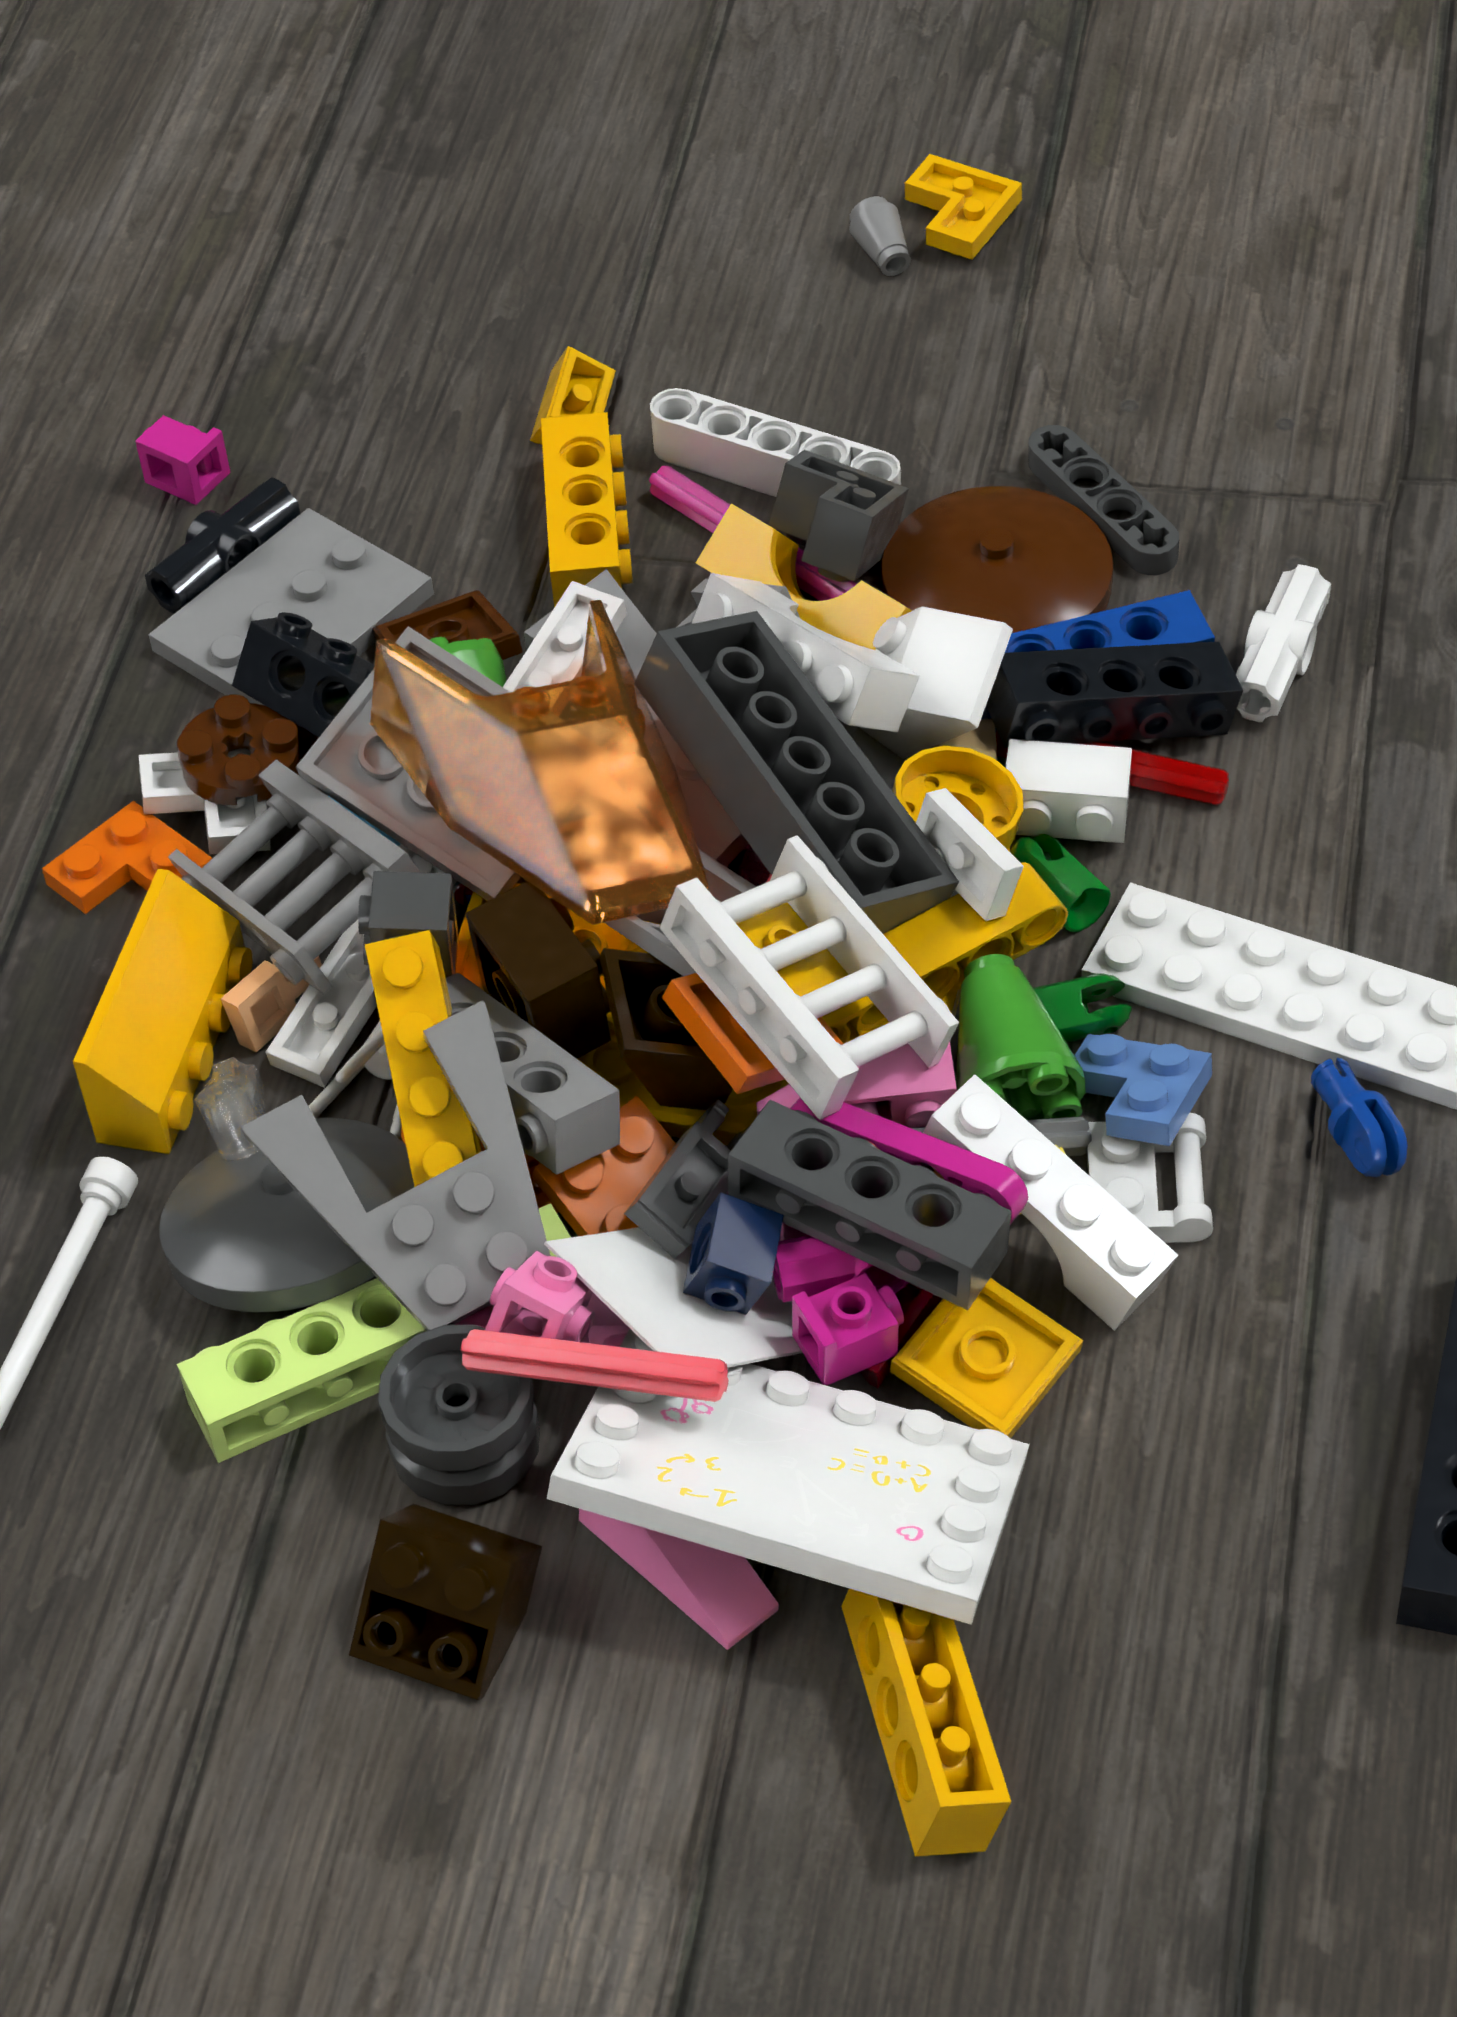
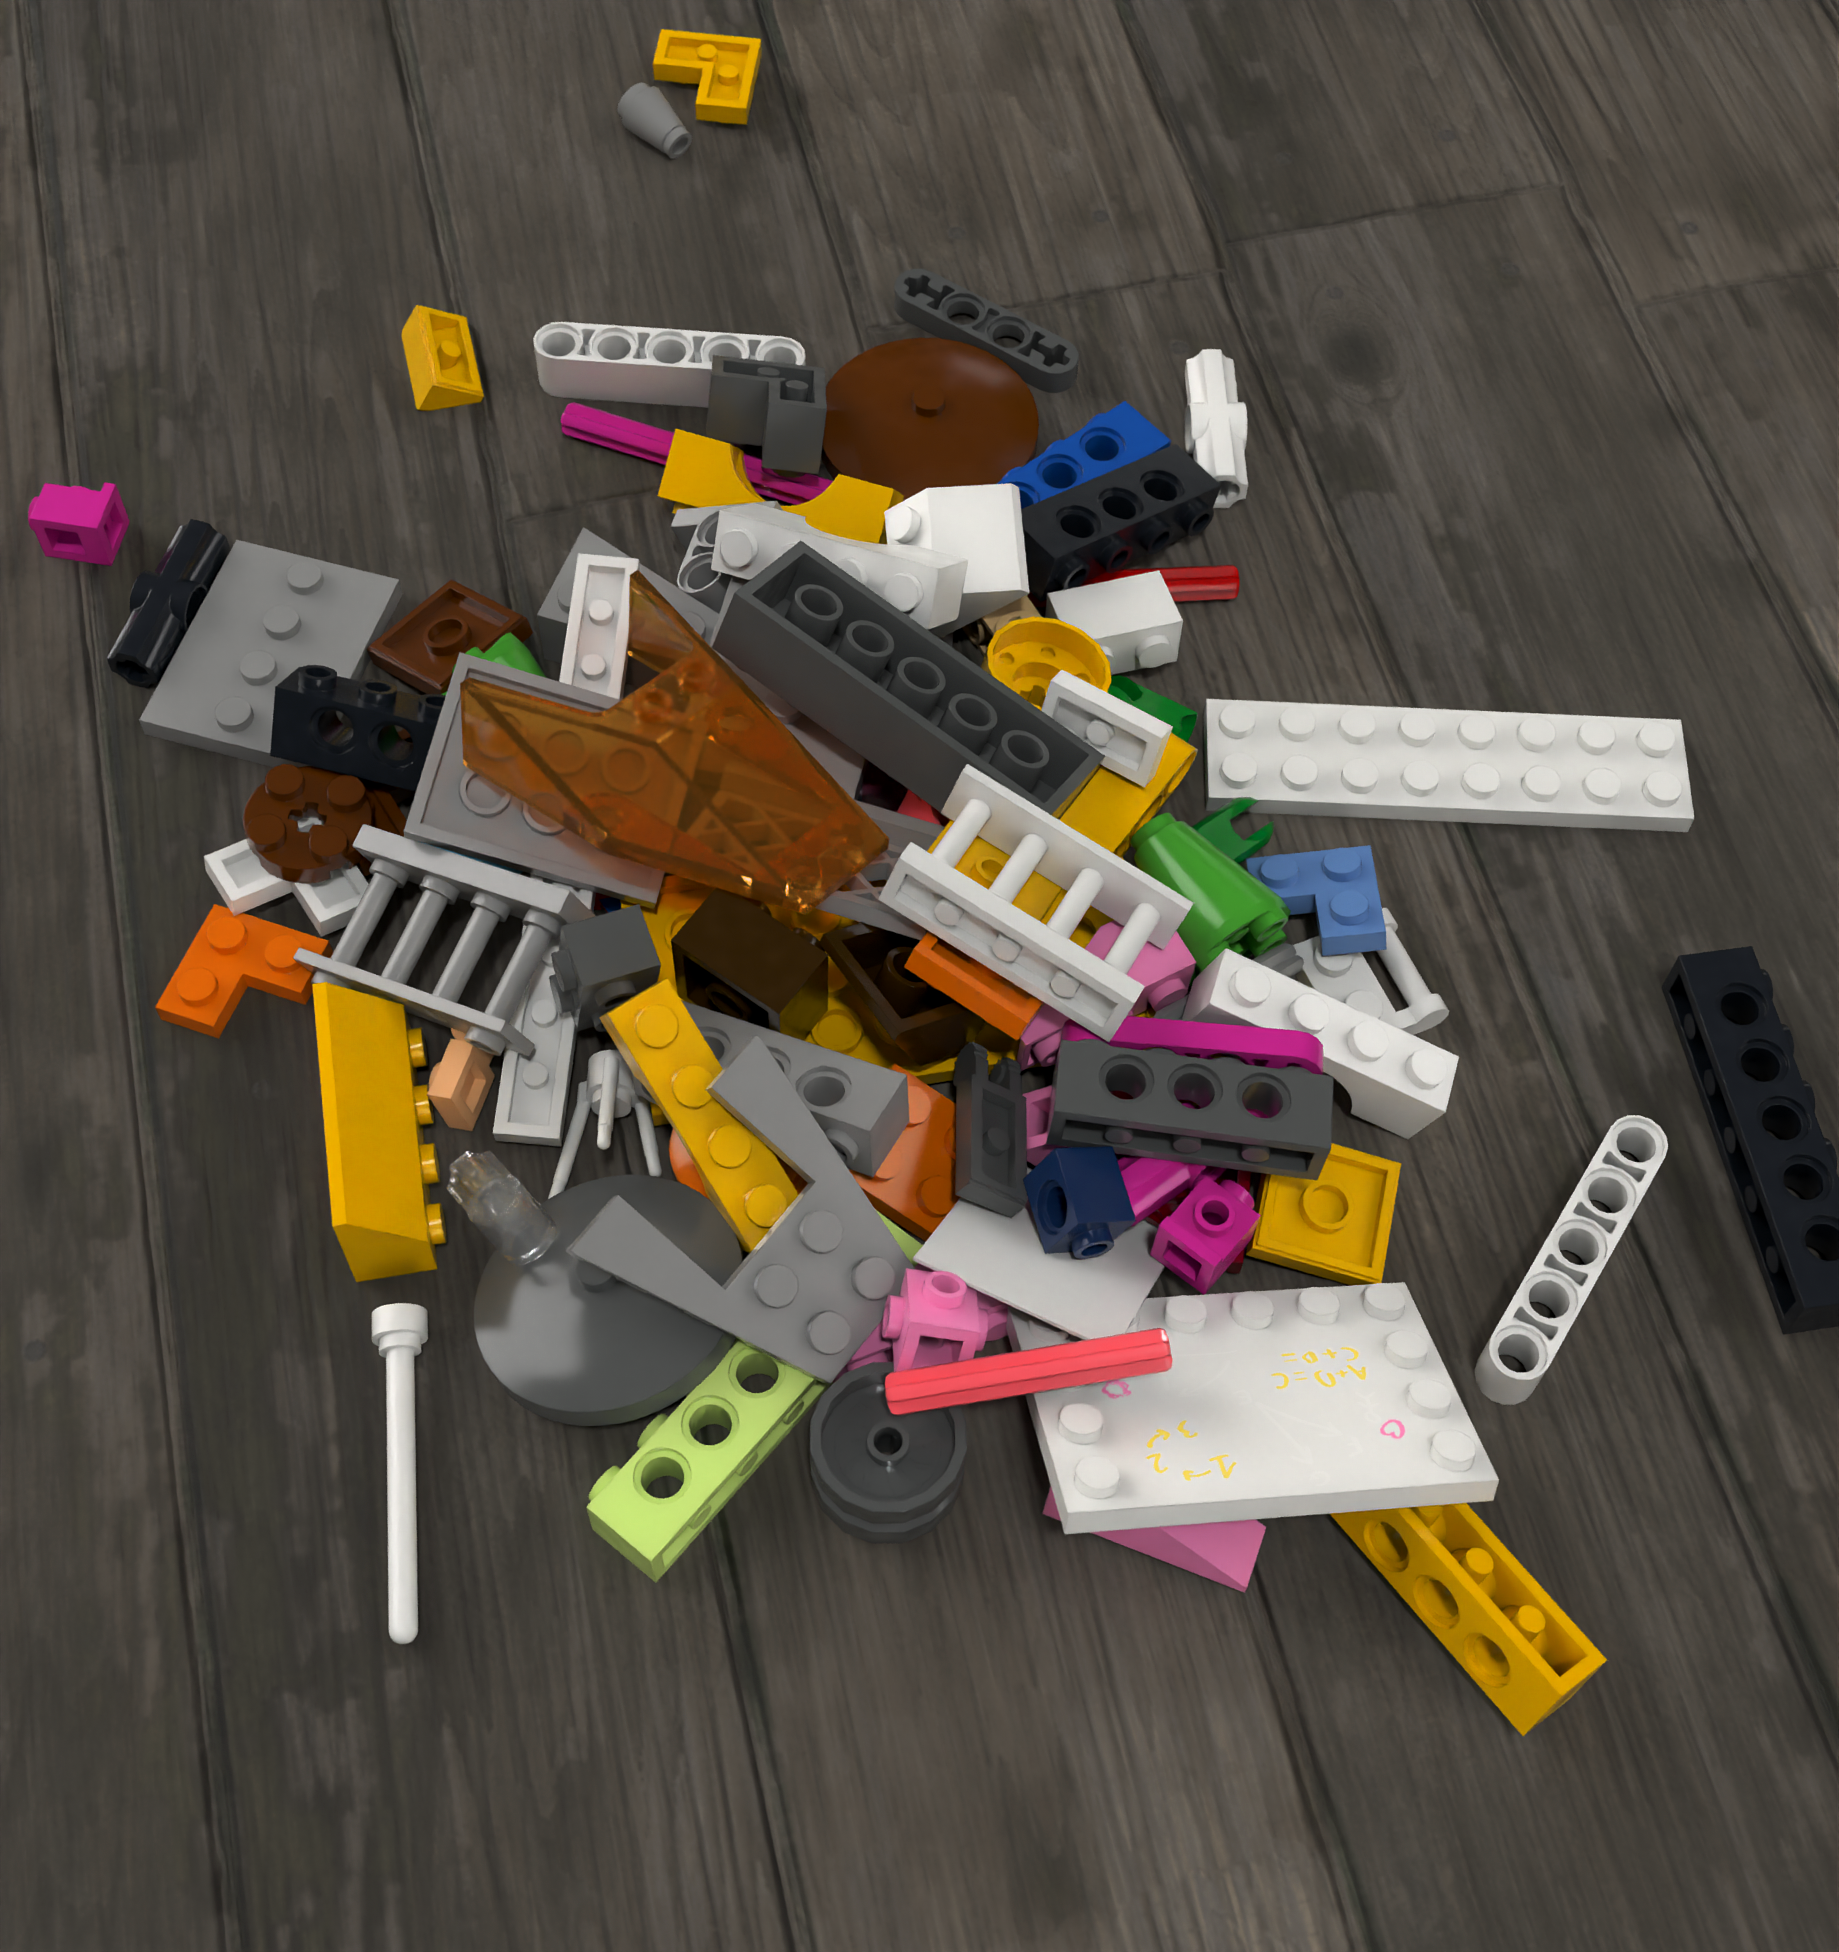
camera: 30 degrees left, 10 degrees up
(443, 1599) = (965, 1649): dark brown slope -> none
(583, 501) = (514, 468): yellow brick -> none
(1192, 1502) = (1562, 1283): none -> white beam
(1361, 1121) = (1522, 867): blue arm -> none

